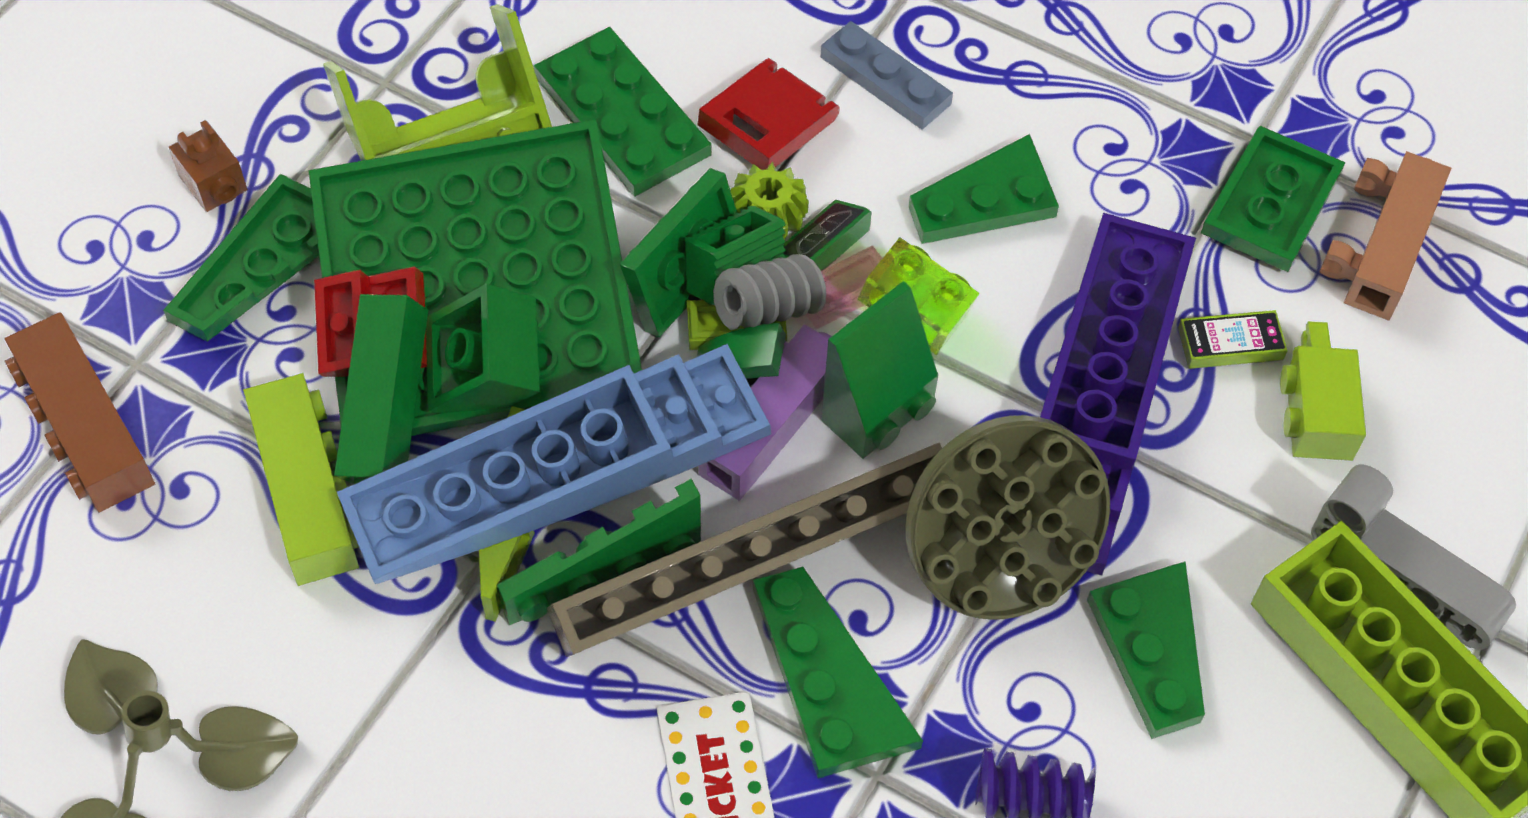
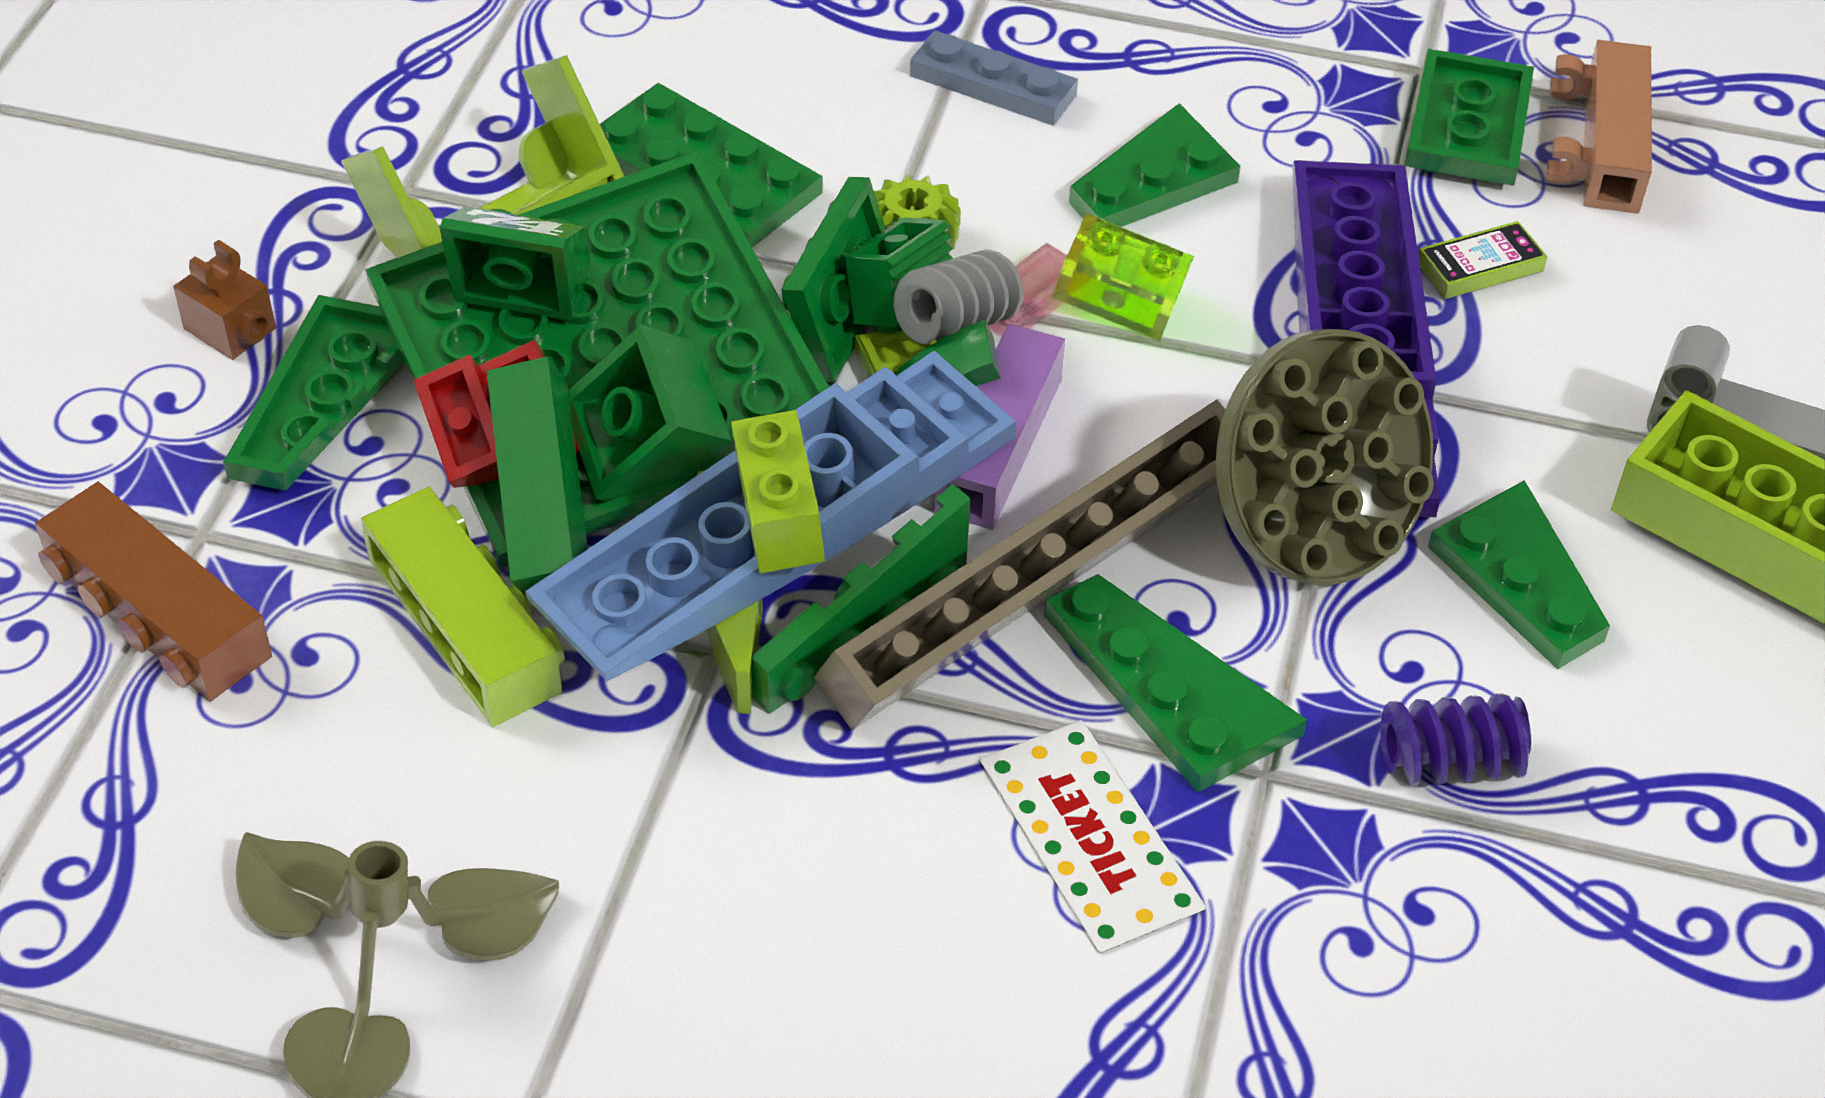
camera: 15 degrees left, 10 degrees down
(417, 192) = (515, 261): none -> green slope
(543, 460) = (778, 491): none -> lime brick
(773, 104) = (878, 122): red container -> none
(830, 233) = (999, 229): slope -> none
(879, 373) = (1117, 352): green slope -> none
(1323, 398) = (1607, 292): lime hinge -> none

